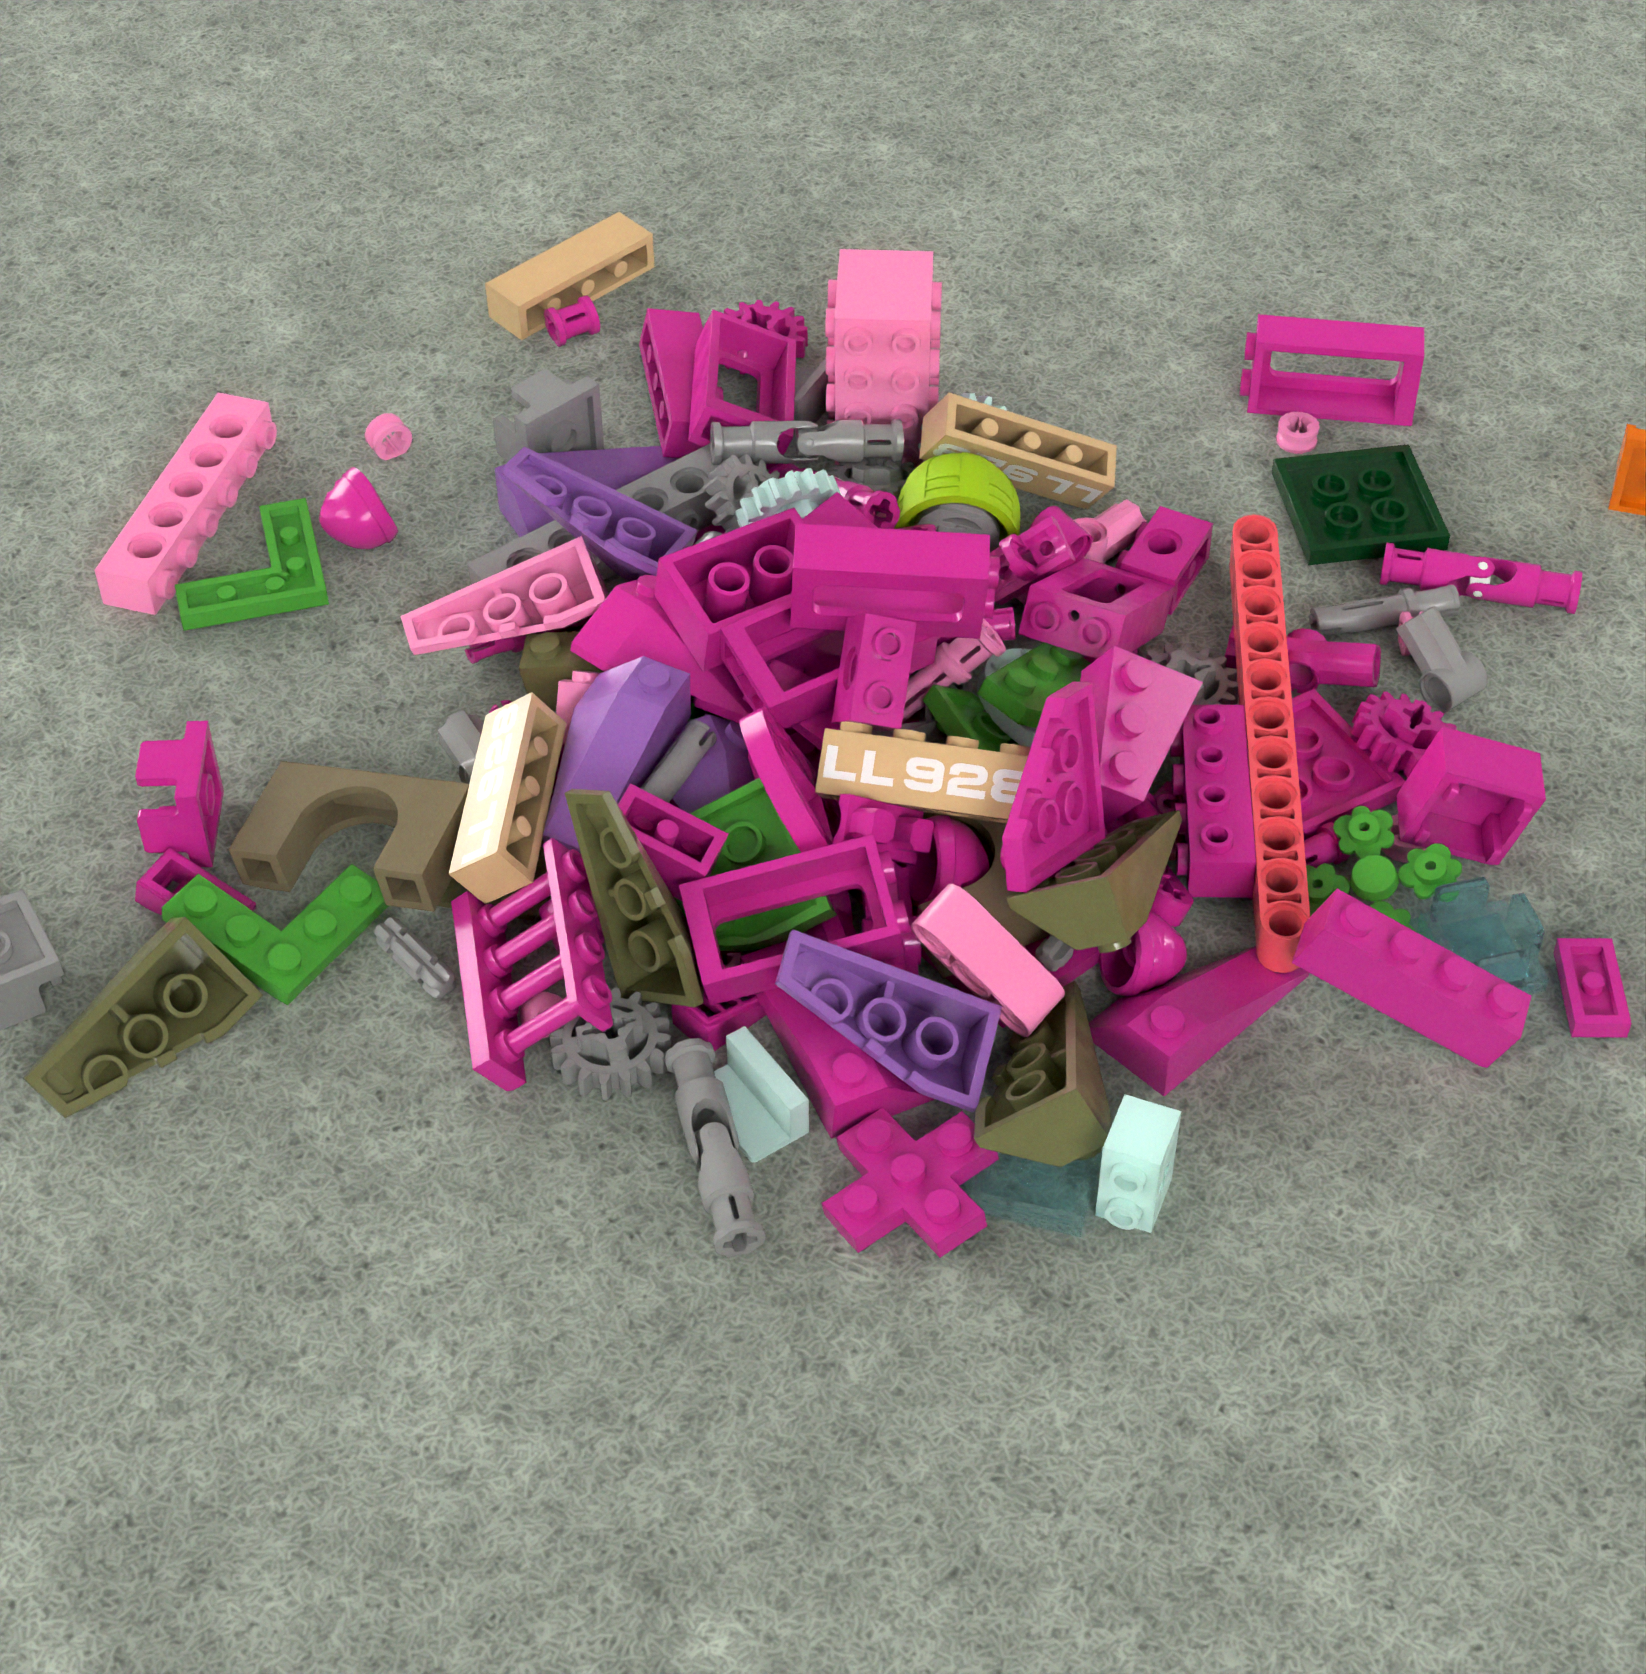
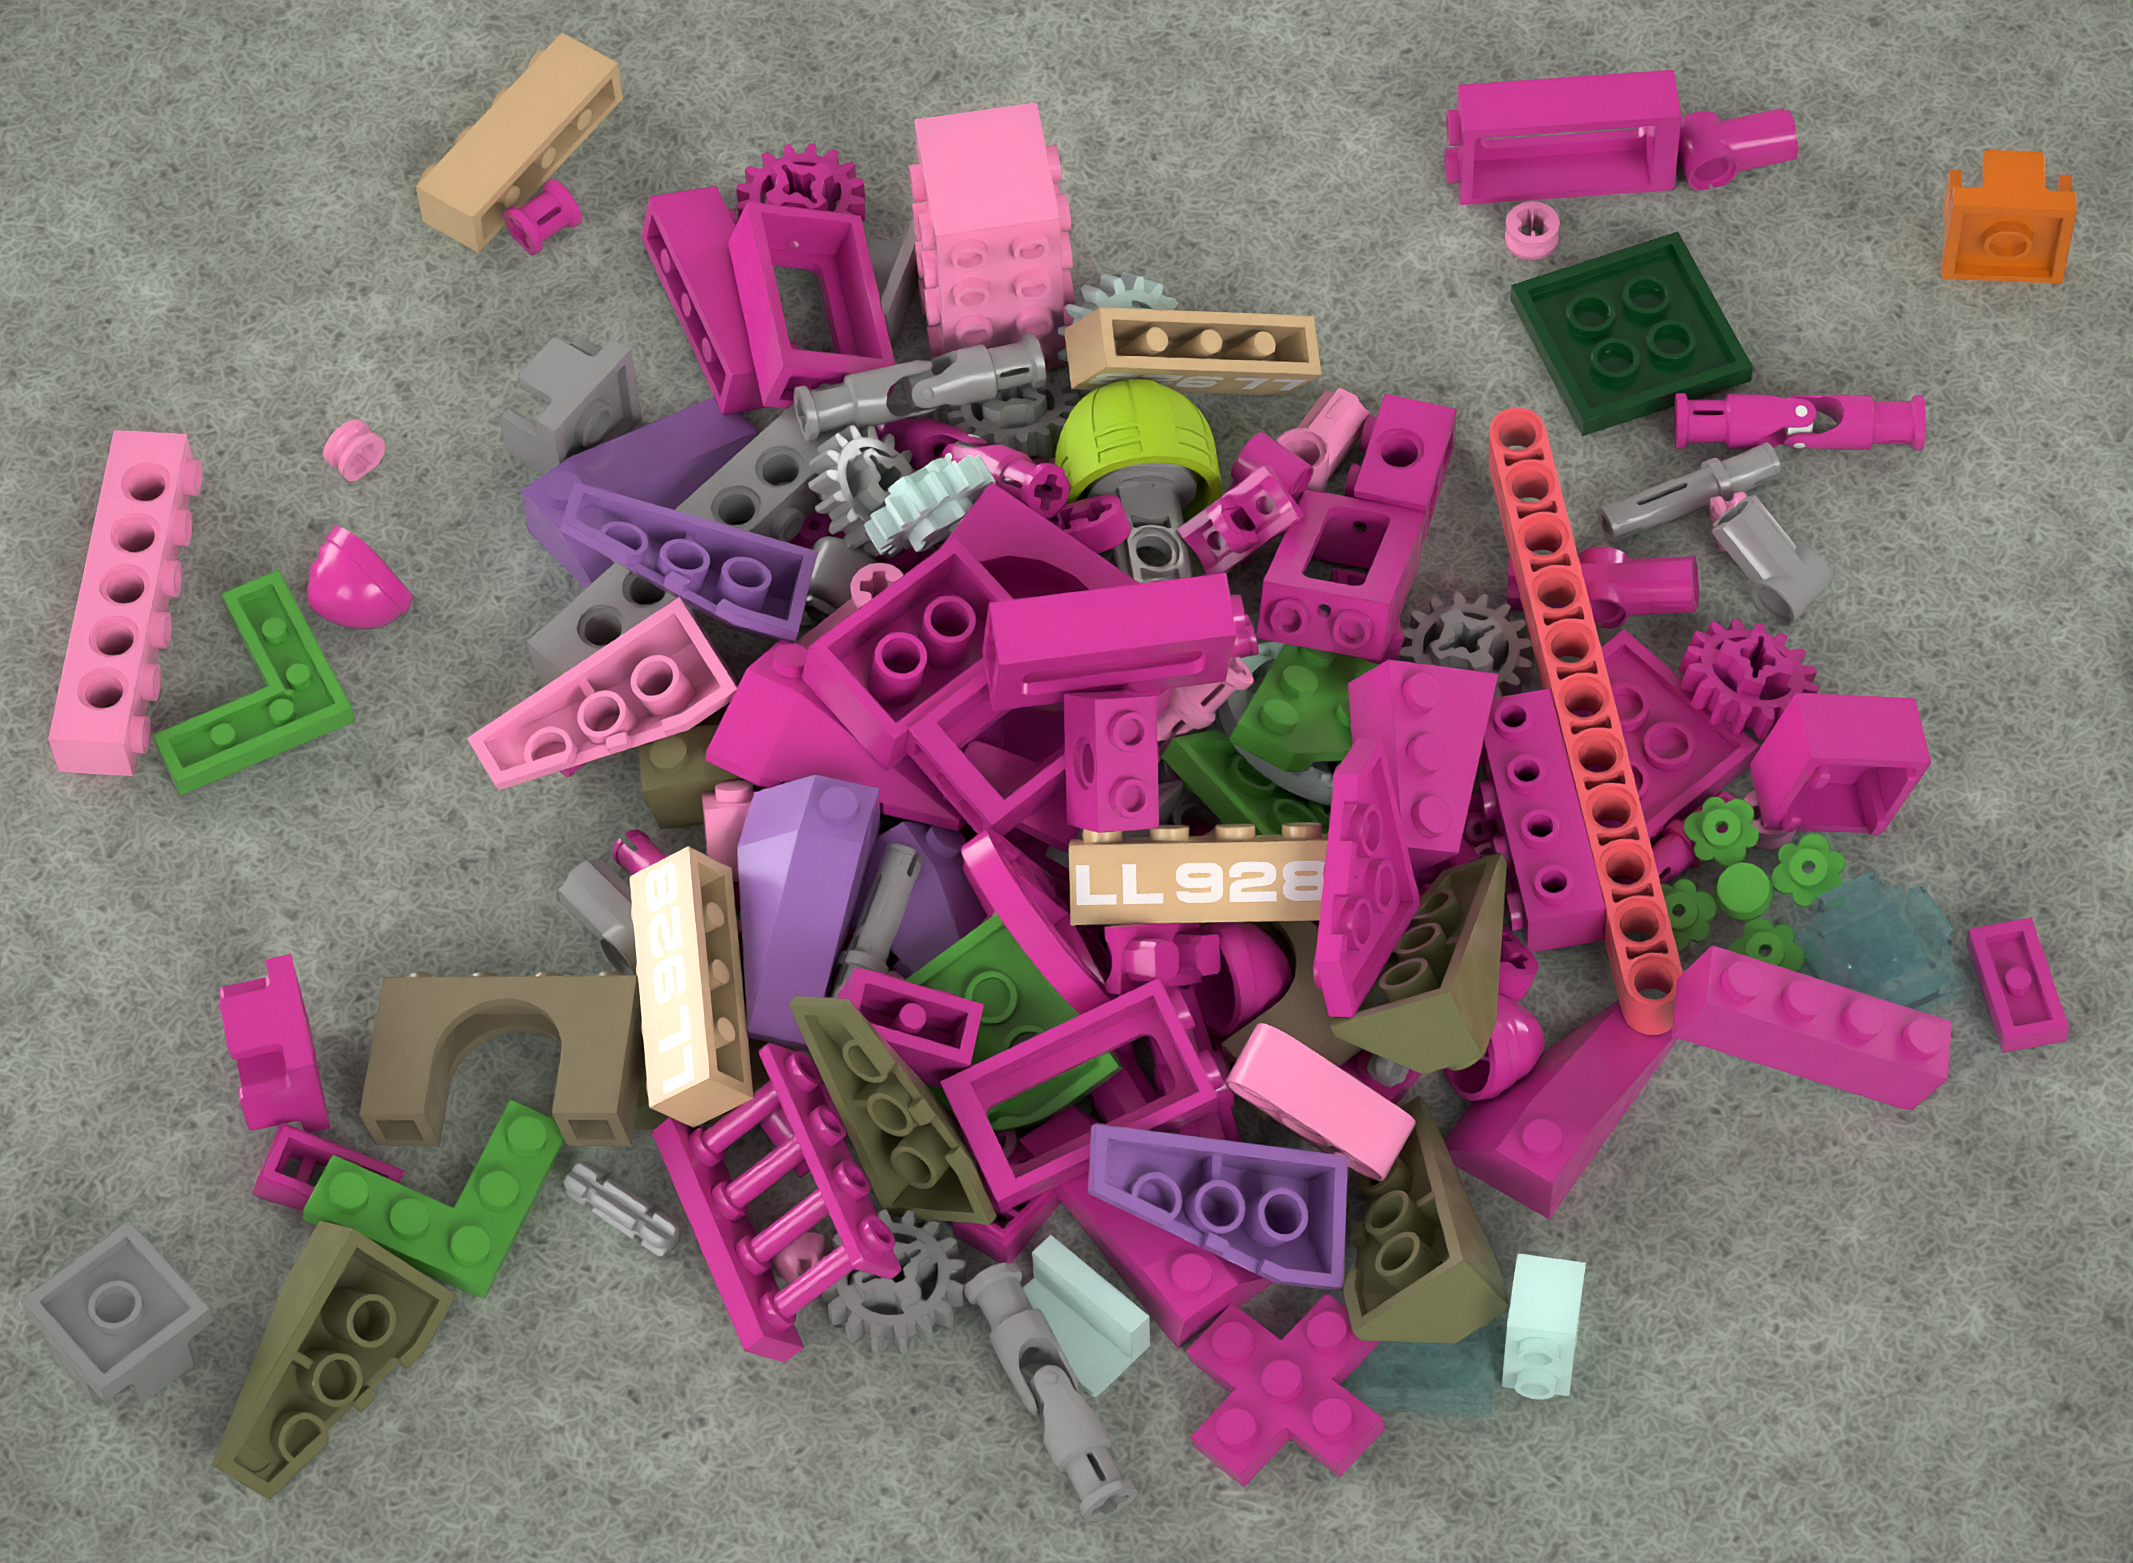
camera: 10 degrees left, 10 degrees up
(1448, 401) = (1717, 149): none -> dark pink piece

